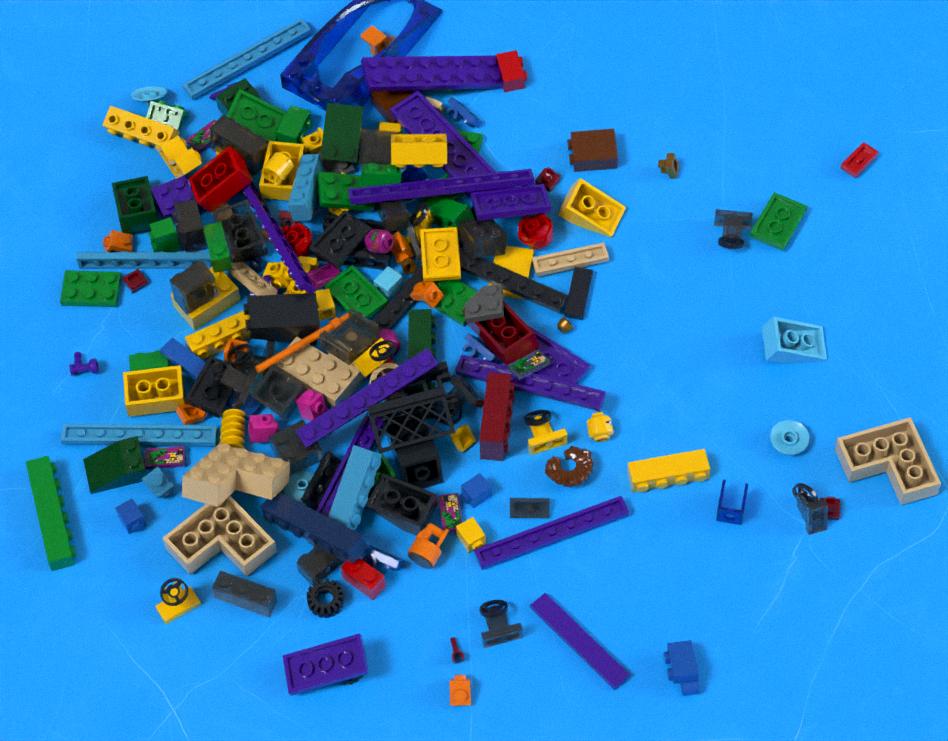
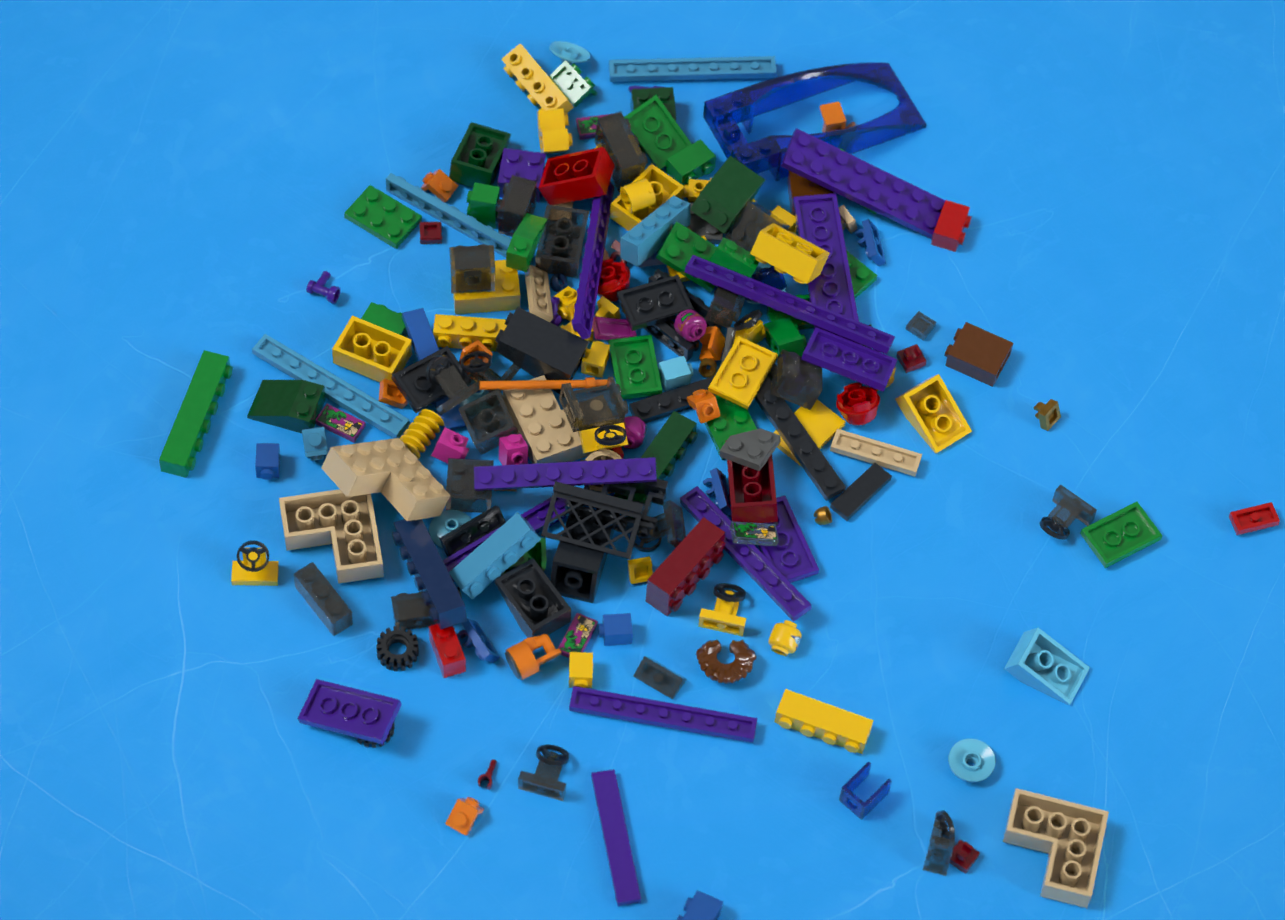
camera: 25 degrees right, 0 degrees up
(538, 153) = (921, 325): none -> clear smoke tile

